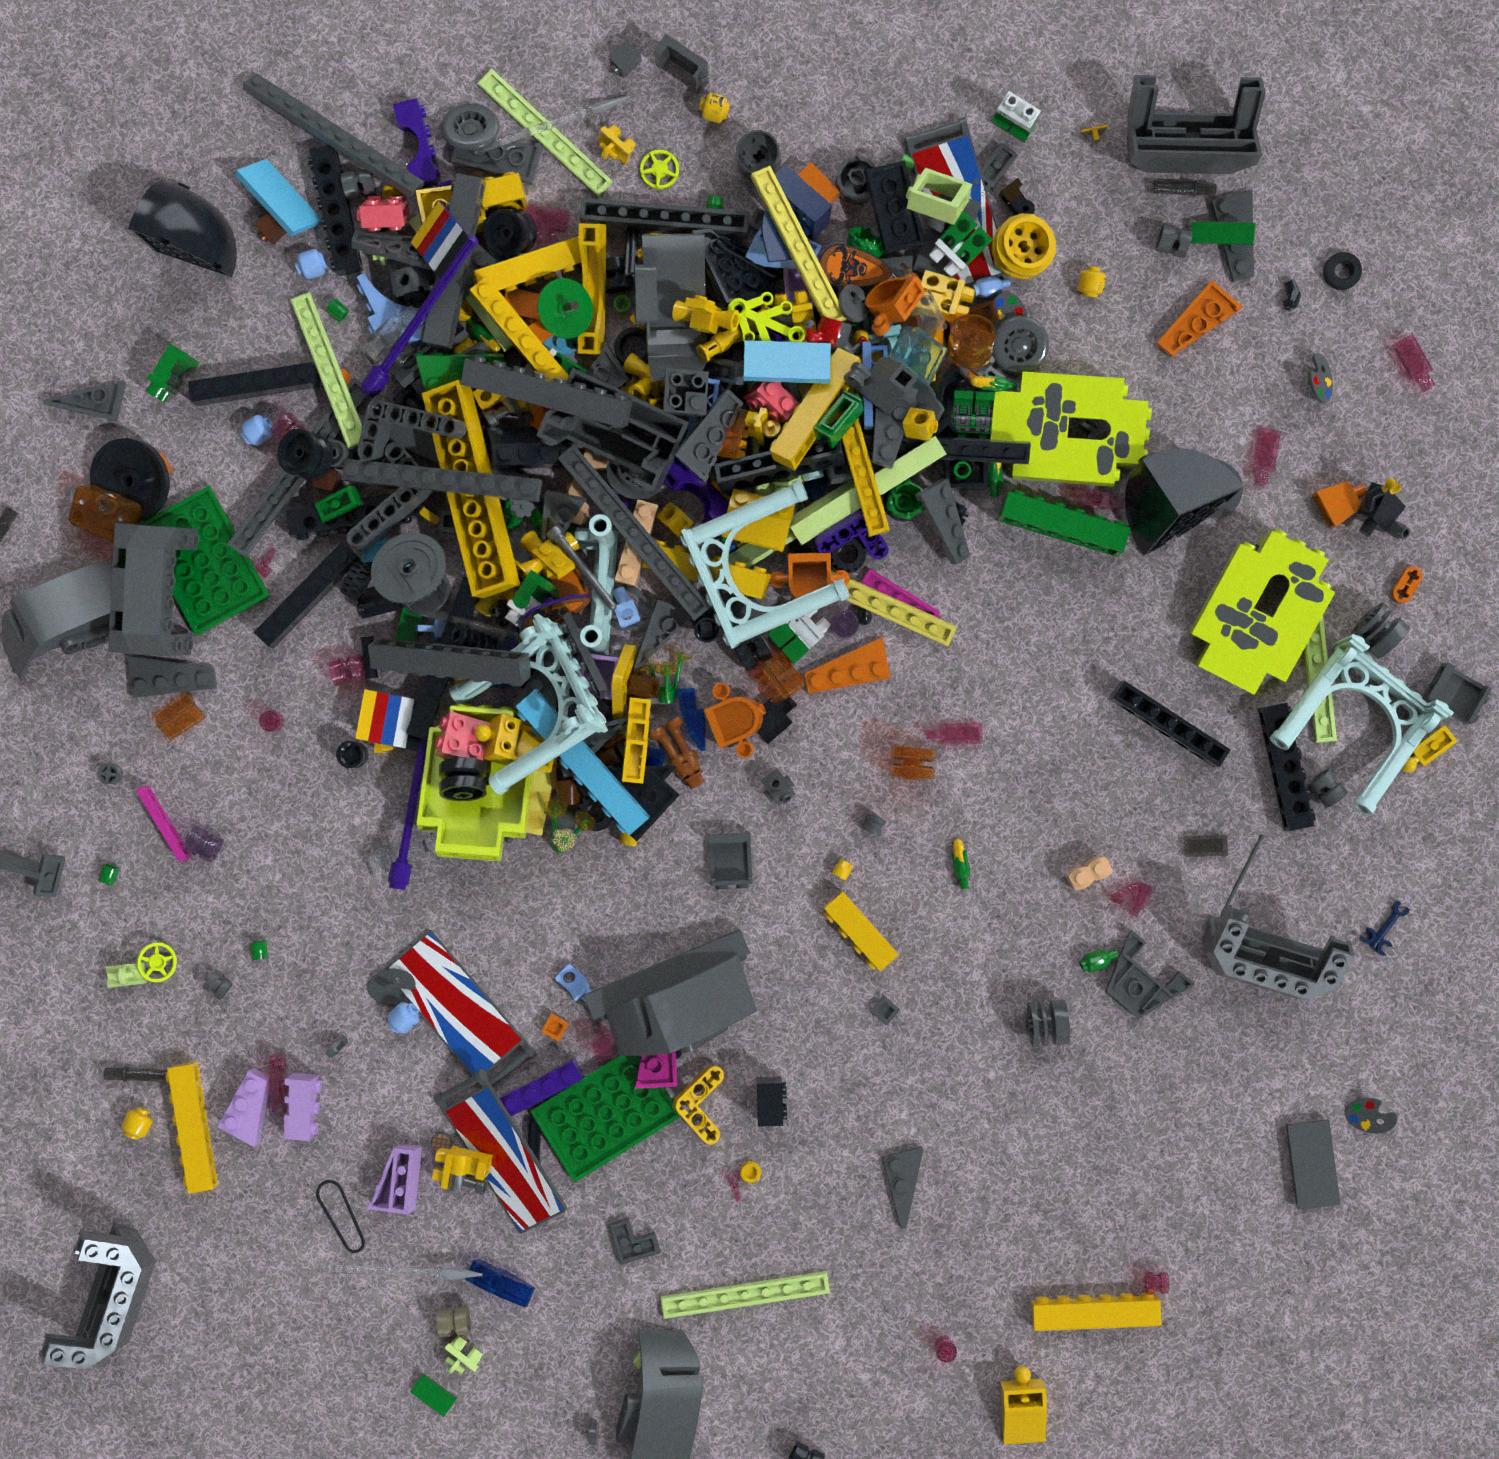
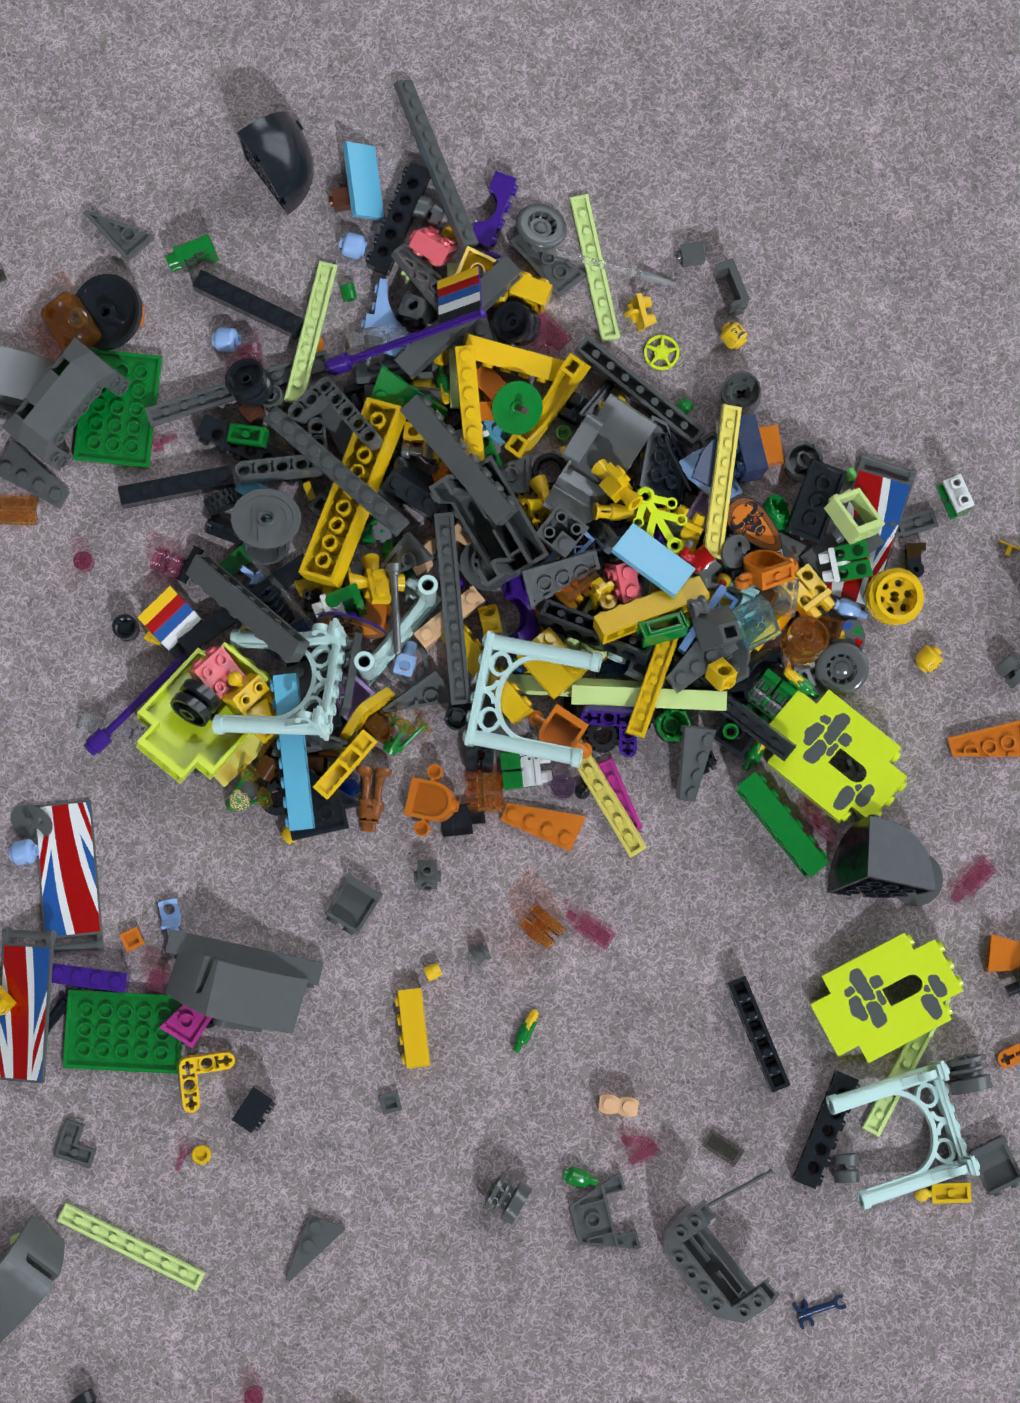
camera: 30 degrees right, 5 degrees down
(693, 717) = (400, 778): clear blue slope -> none

